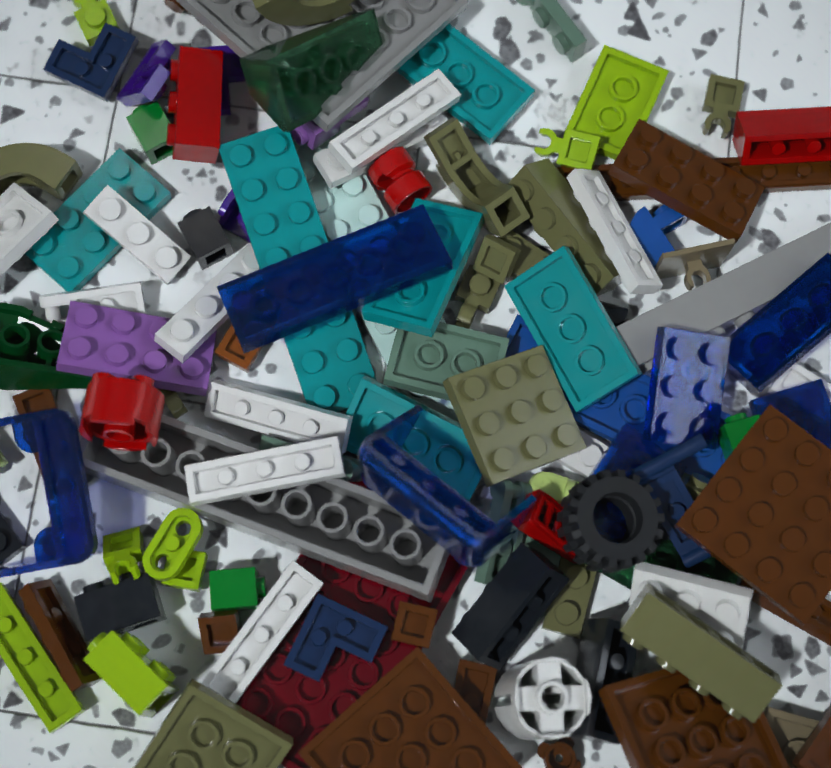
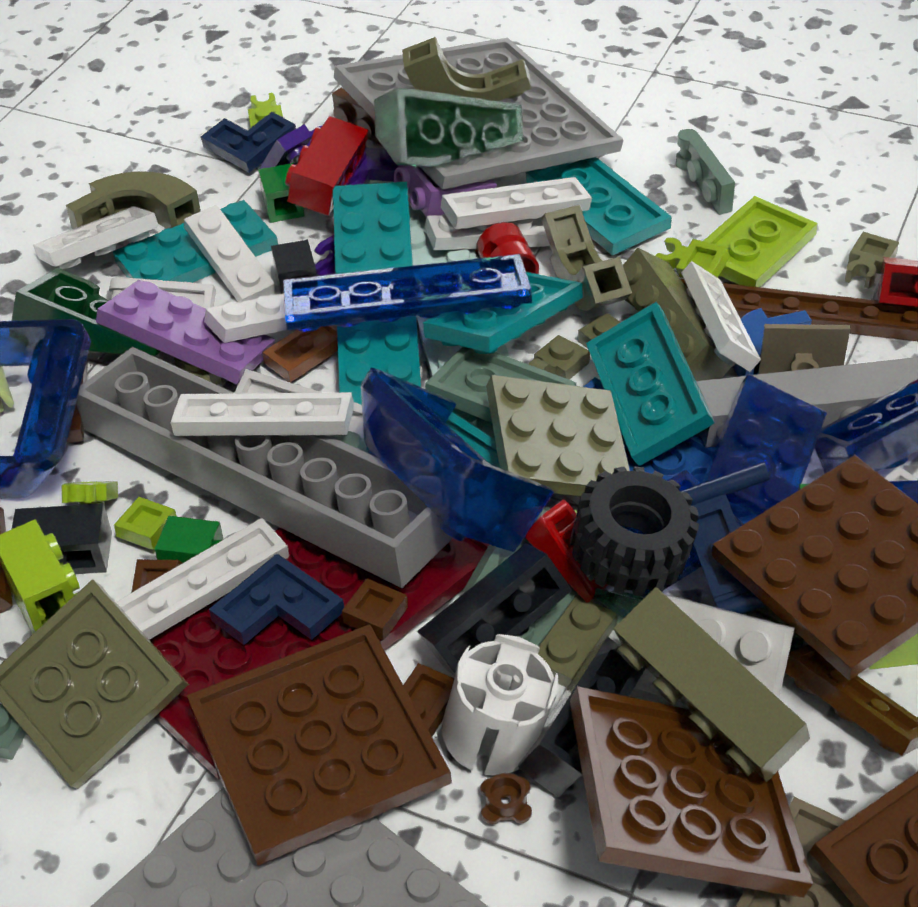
camera: 20 degrees right, 30 degrees down
(122, 411) = (139, 340): red brick -> none
(171, 544) = (141, 486): lime plate -> none
(496, 259) = (585, 323): olive plate -> none
(687, 181) = (813, 295): reddish brown plate -> none

